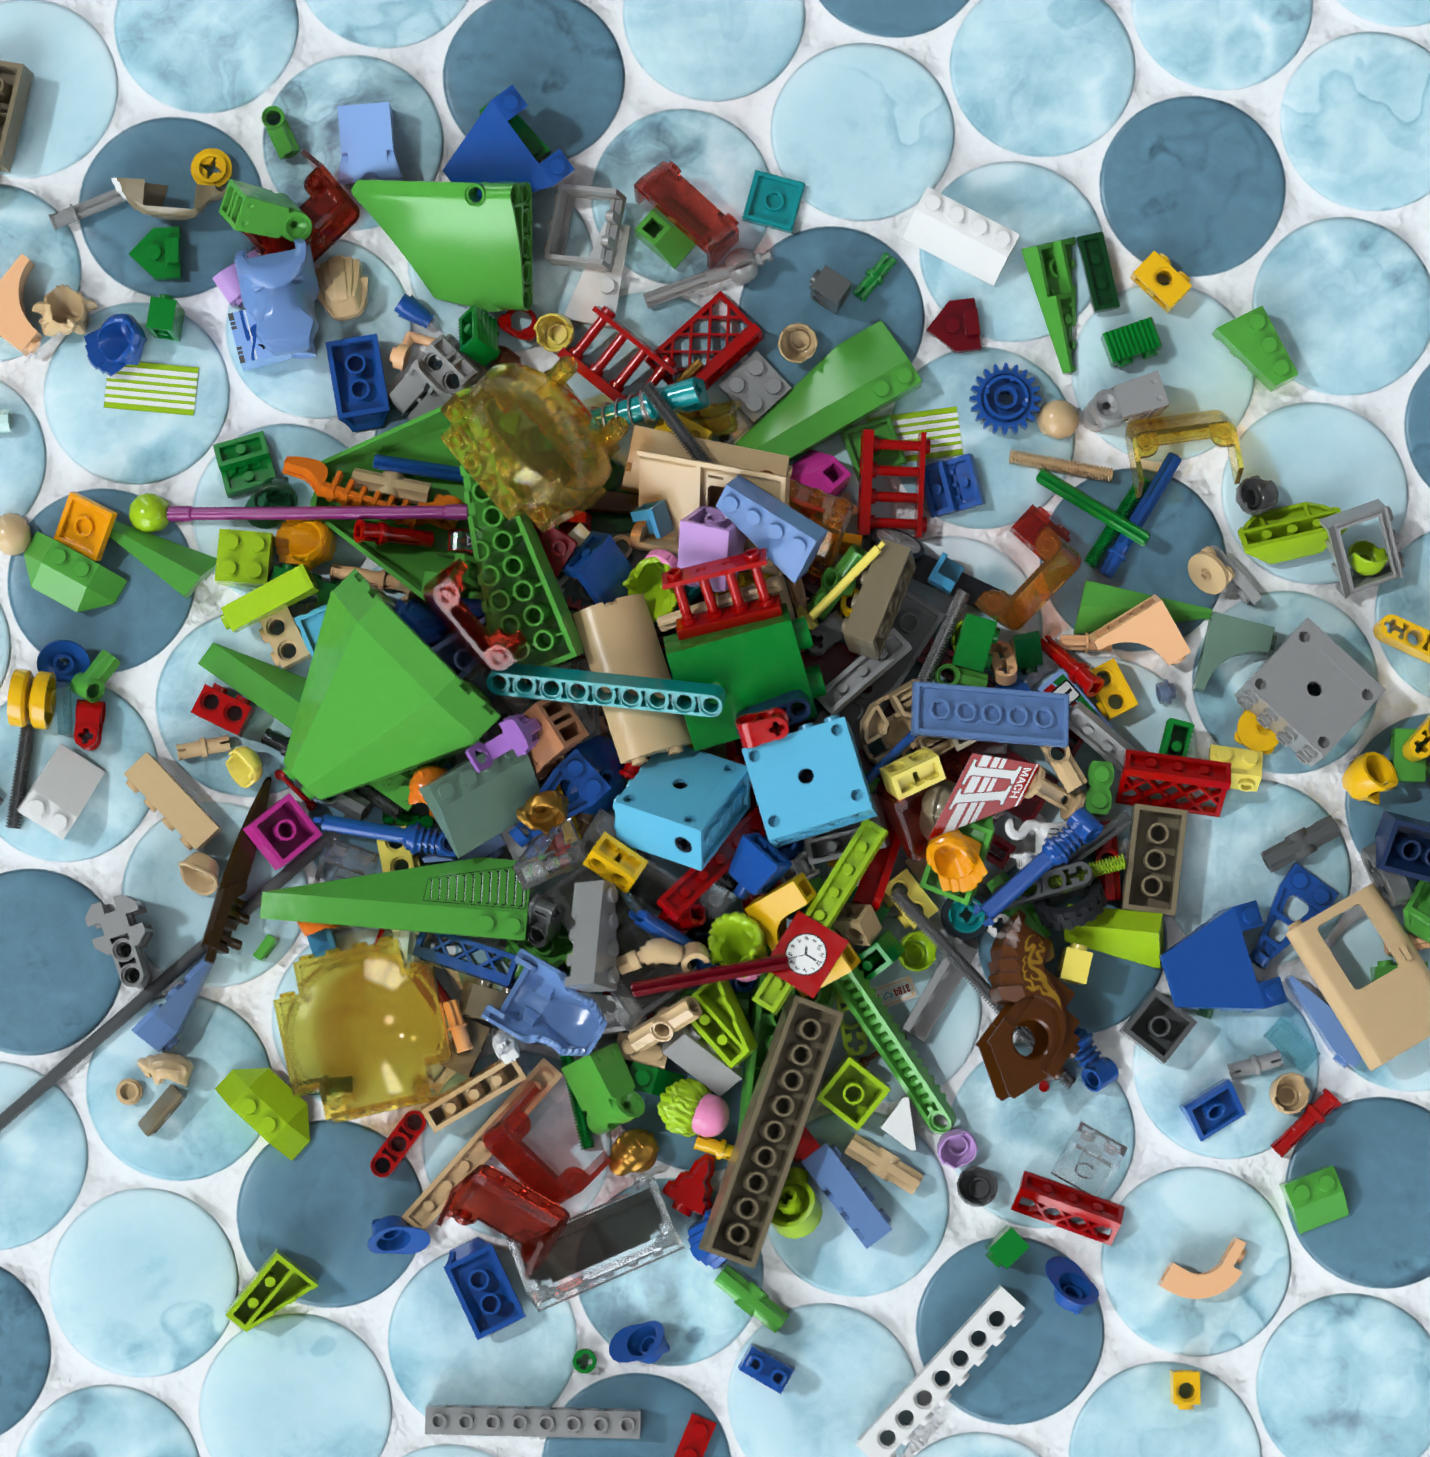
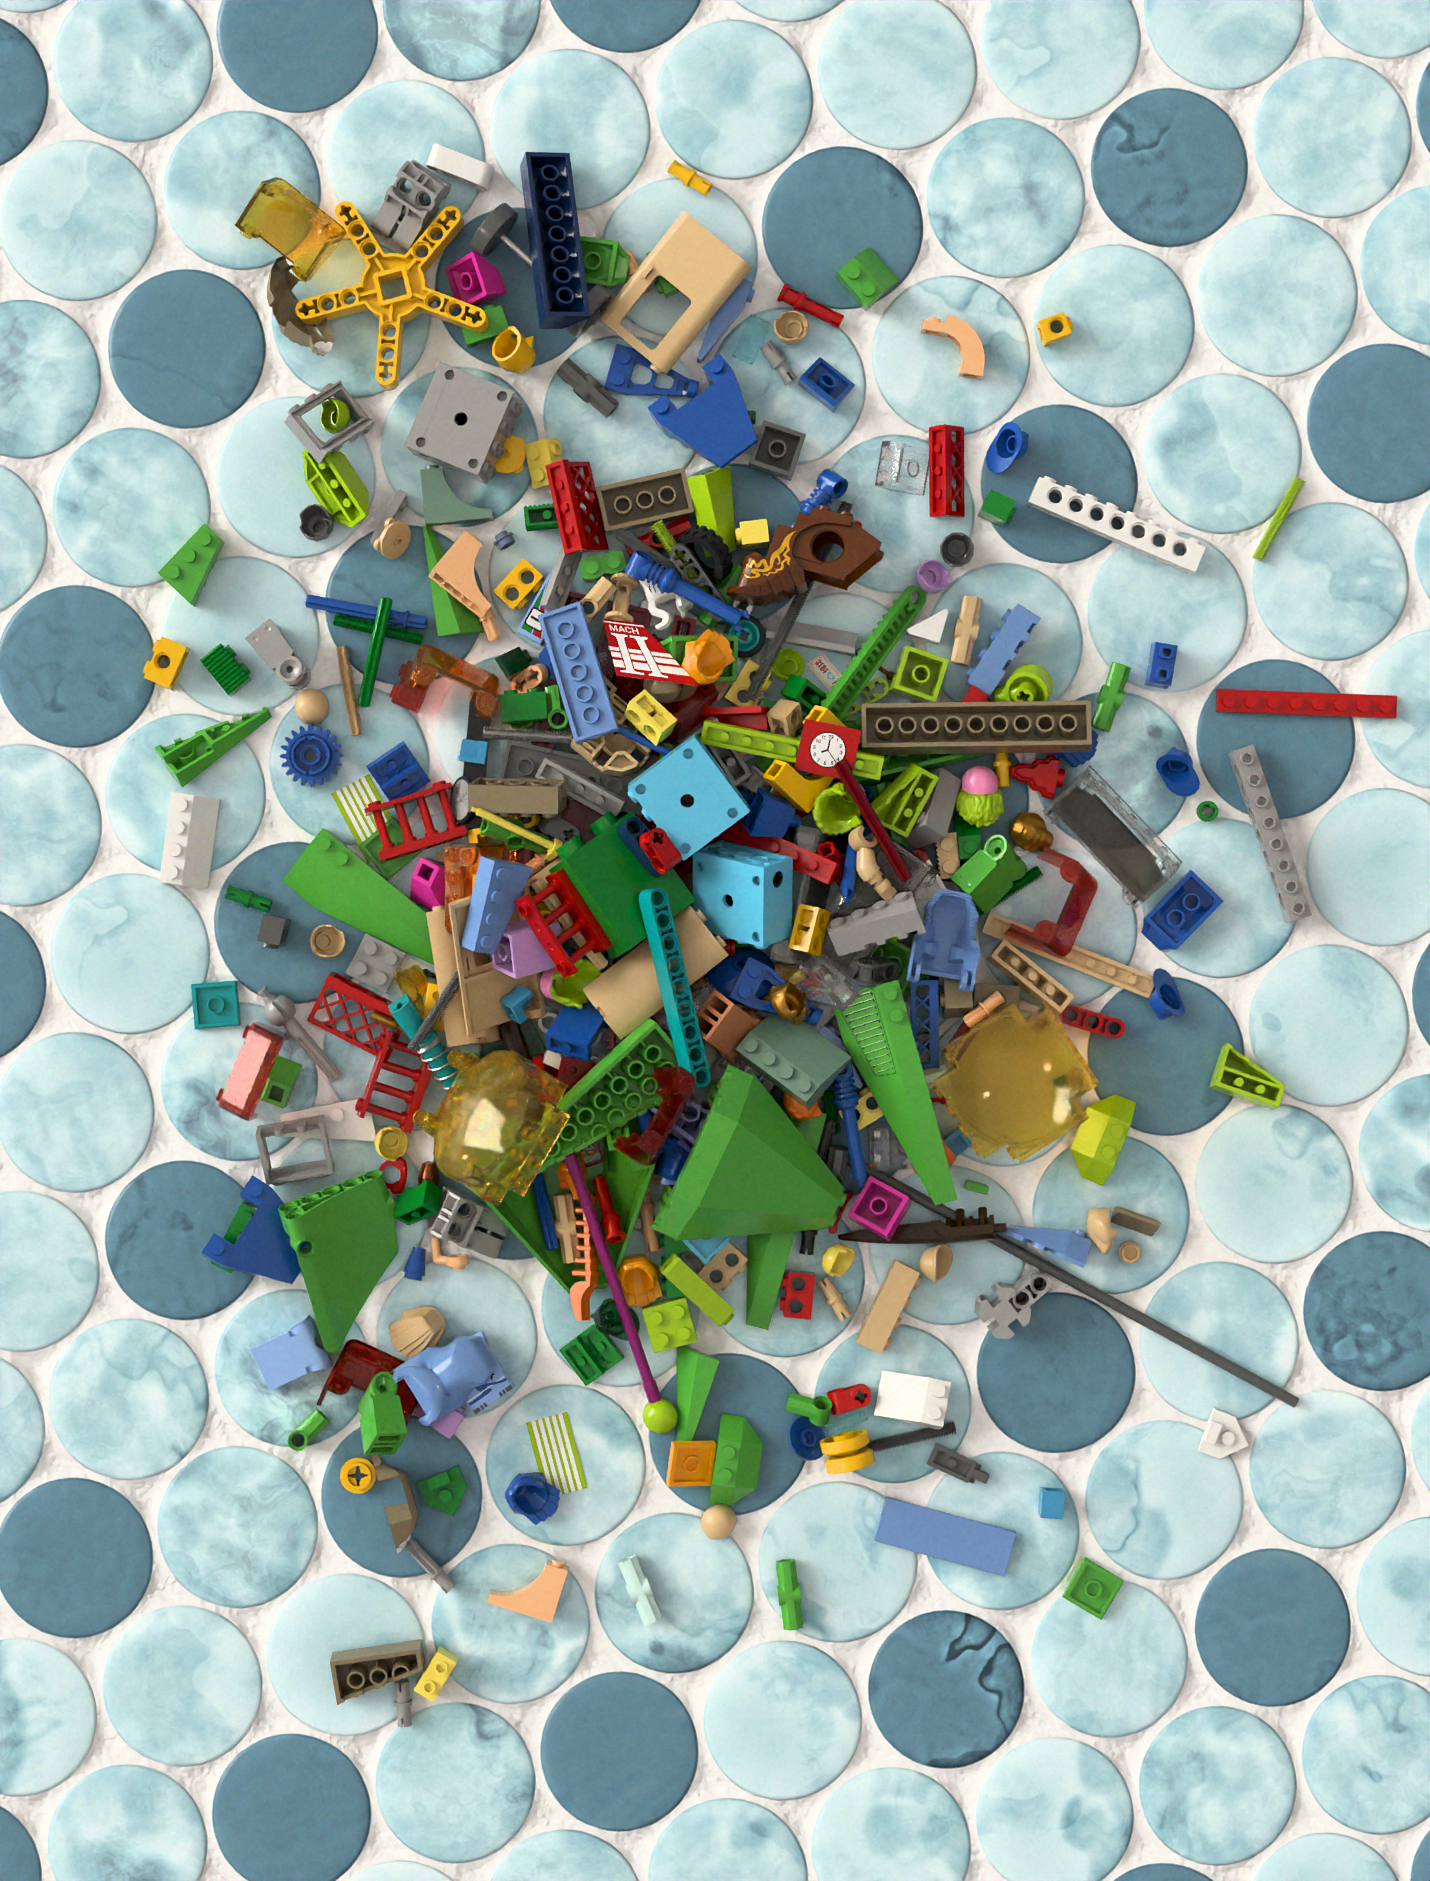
camera: 115 degrees left, 5 degrees up
(64, 312) = (521, 1549): tan hair -> none
(165, 318) = (496, 1464): green brick -> none
(358, 382) = (491, 1287): blue slope -> none
(505, 1046) = (987, 964): white hinge -> none
(510, 1210) = (1112, 913): clear red windscreen -> none
(518, 734) = (738, 1045): medium lavender piece -> none
(665, 1024) = (923, 843): tan piece -> none
(958, 326) = (264, 816): dark red plate -> none
(1078, 672) = (515, 616): red pin -> none
(1098, 272) = (177, 717): dark green plate -> none
(1147, 435) = (298, 629): clear yellow windscreen -> none

